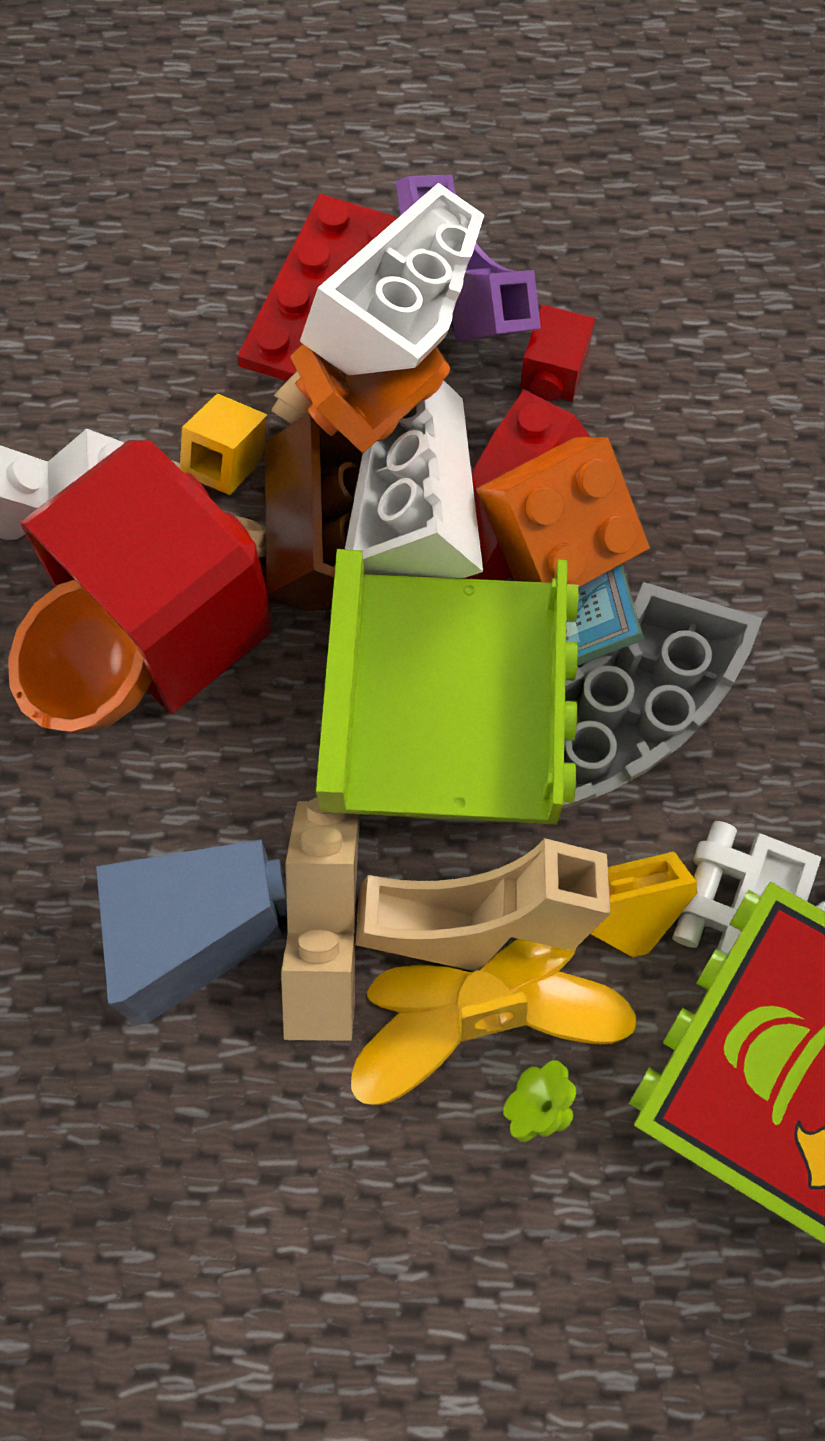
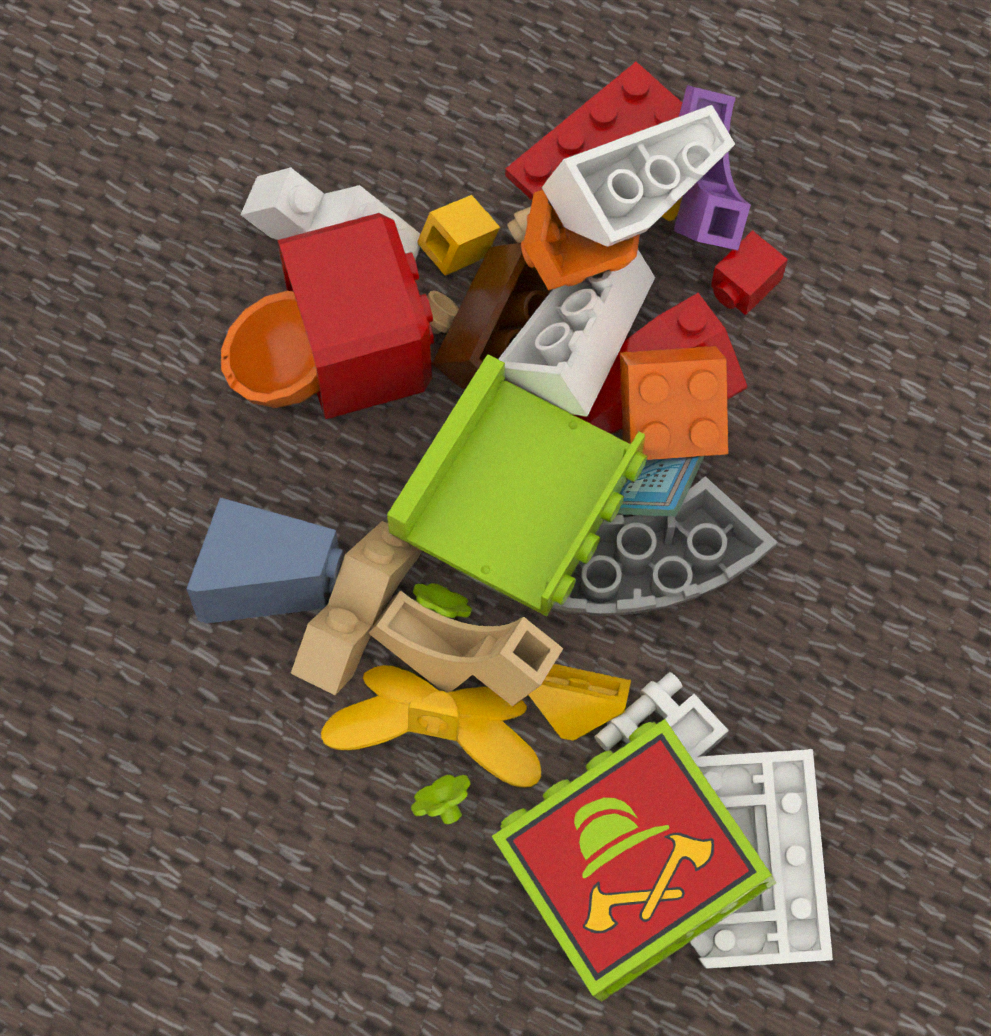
camera: 25 degrees right, 0 degrees up
(417, 863) = (442, 600): none -> lime plant

